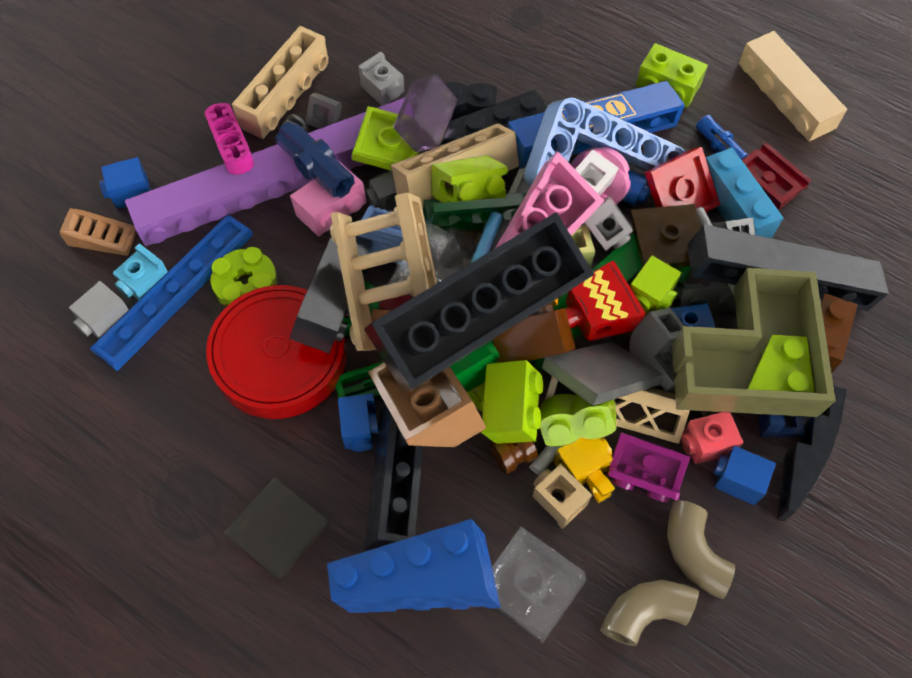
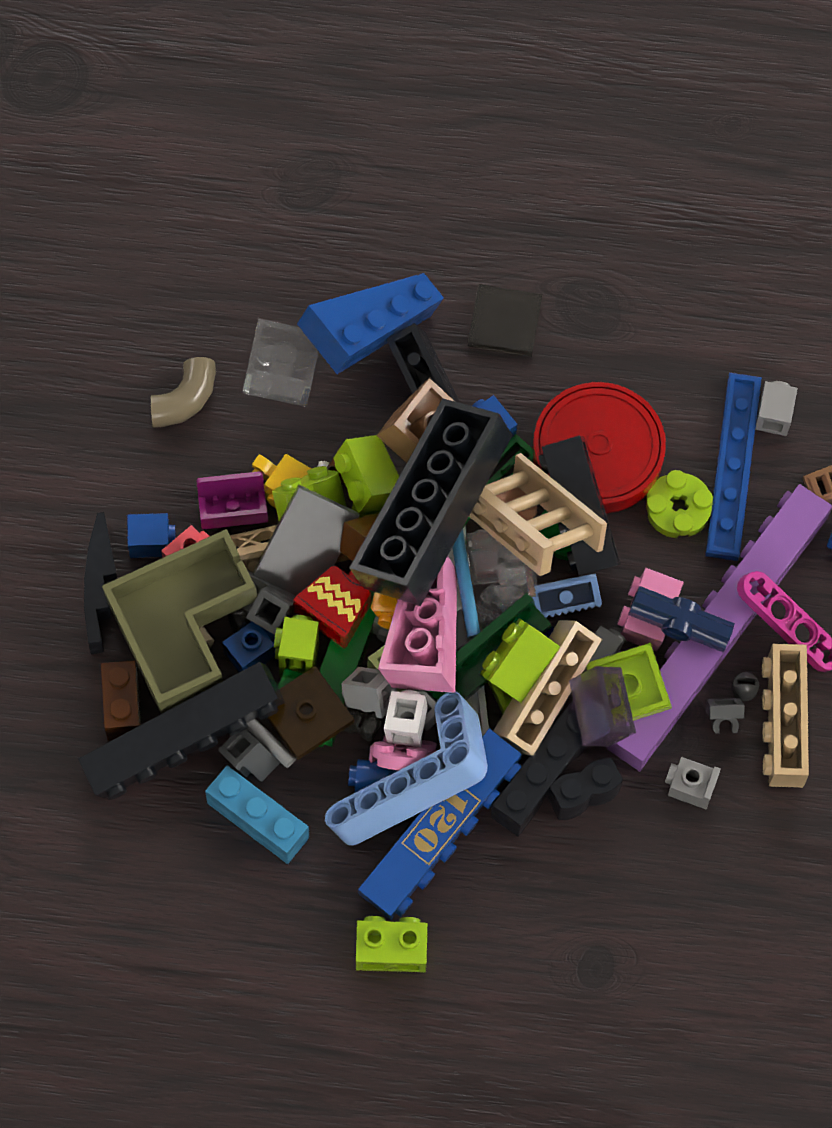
camera: 150 degrees right, 5 degrees up
(139, 273) = (765, 466): medium azure brick -> none
(561, 481) = (290, 435): tan brick -> none
(683, 181) = (318, 789): plate -> none
(692, 552) = (167, 452): dark tan cylinder -> none
(710, 127) = (301, 889): blue pin -> none
(776, 175) = (233, 867): dark red plate -> none
(784, 366) = (152, 611): lime wing -> none
(792, 86) = (256, 999): tan brick -> none

